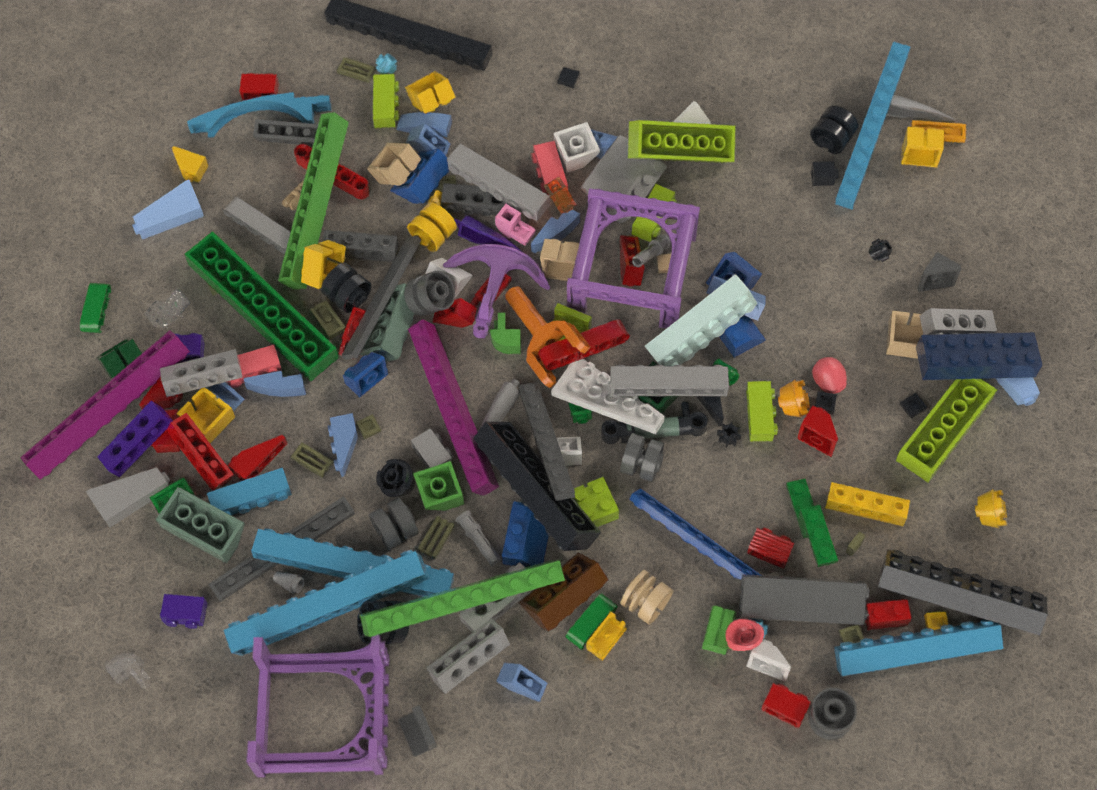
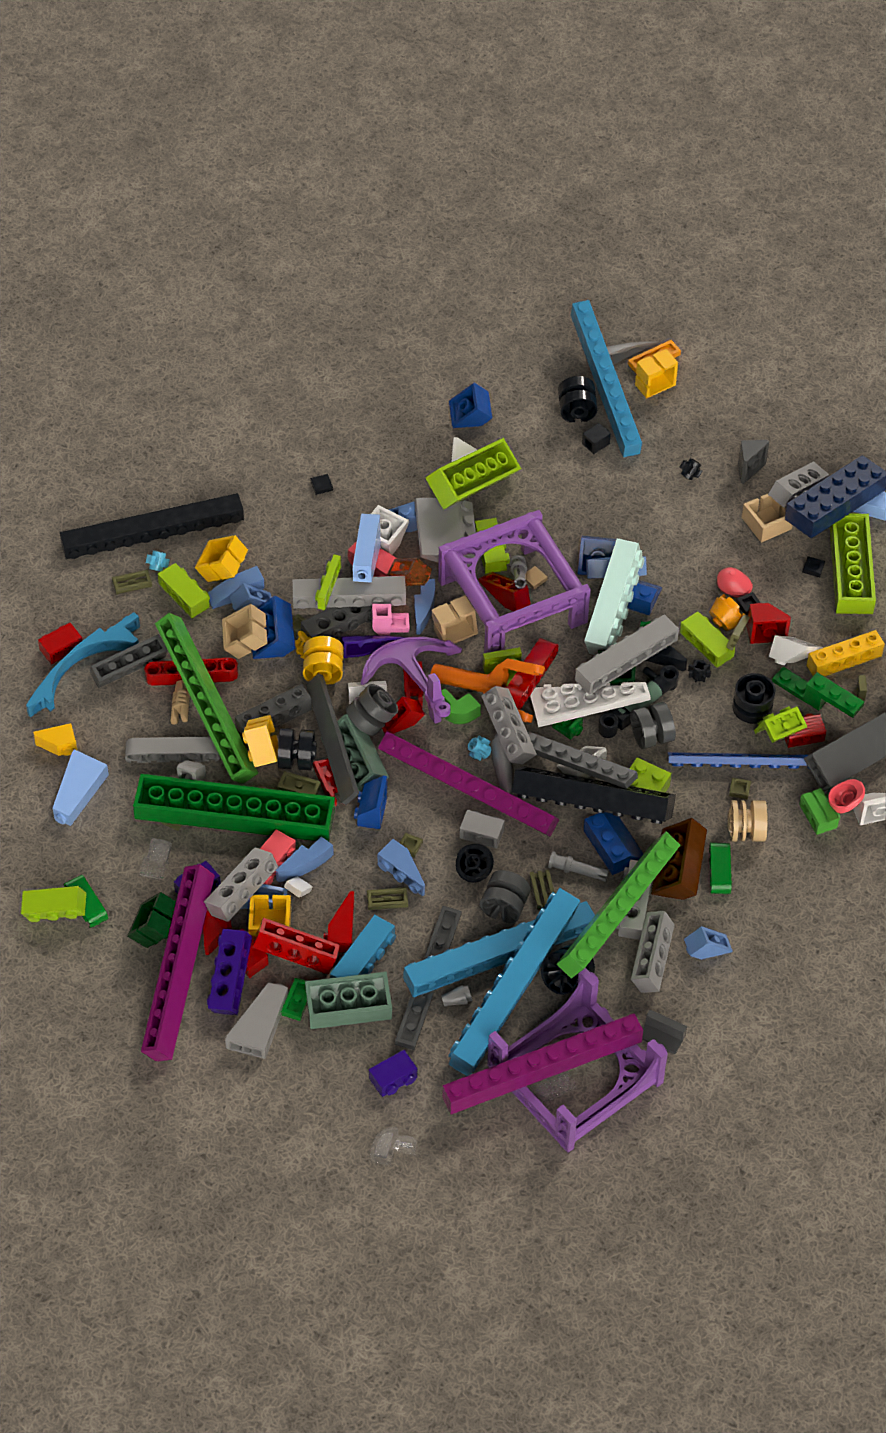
camera: 40 degrees left, 10 degrees down
(65, 295) = (53, 903): none -> lime brick
(253, 403) = (298, 886): none -> white tile
(255, 255) = (191, 770): none -> light grey slope
(289, 690) = (542, 1063): none -> magenta brick
(294, 713) = (553, 1087): none -> clear plate
(439, 487) = (517, 845): bright green slope -> none
(481, 163) = (327, 582): none -> lime plate
(490, 381) = (479, 748): none -> medium azure gear
(521, 378) = (509, 725): none -> light grey brick
(537, 154) = (367, 548): none -> light blue slope
(606, 636) = (740, 871): yellow hinge -> none
(672, 561) = (739, 788): none -> olive tile
(743, 84) = (470, 407): none -> blue slope
(750, 490) = (753, 698): none -> black wheel
(750, 532) = (783, 724): none -> lime bracket
(785, 422) = (738, 631): none -> olive tile
(824, 467) = (790, 649): none -> white slope

